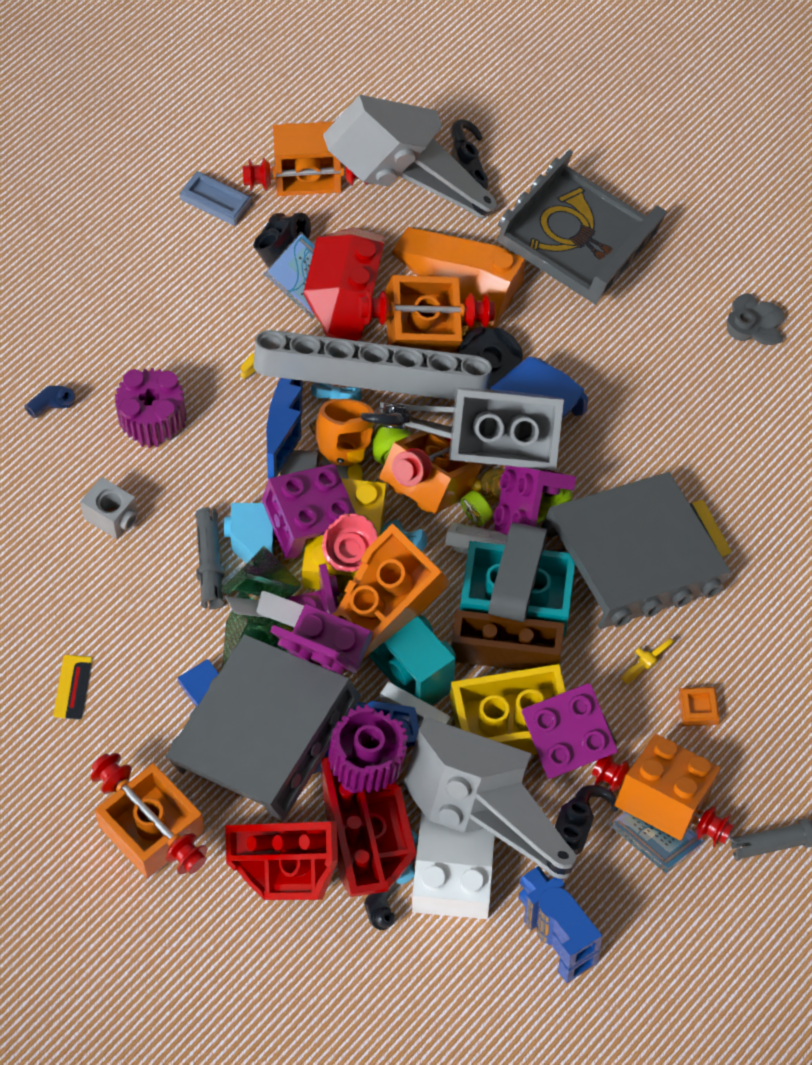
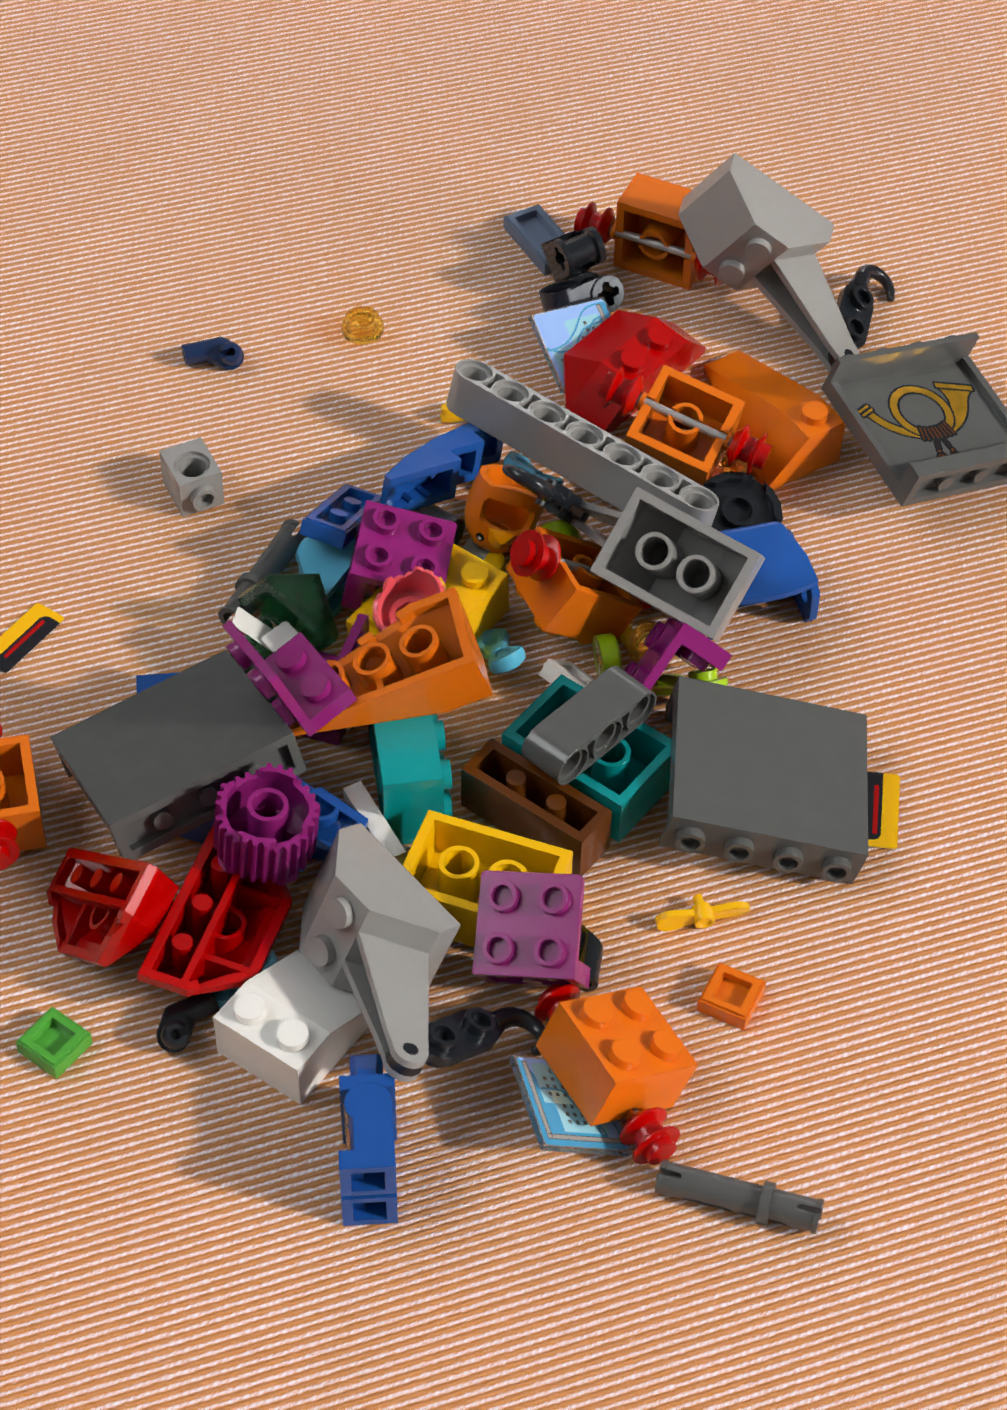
camera: 30 degrees right, 10 degrees down
(141, 329) = (362, 325): none -> clear yellow plate
(150, 406) = (311, 397): magenta brick -> none
(241, 490) = (338, 516): none -> blue tile
(257, 205) = (574, 253): none -> black piece
(307, 963) = (54, 1042): none -> bright green tile

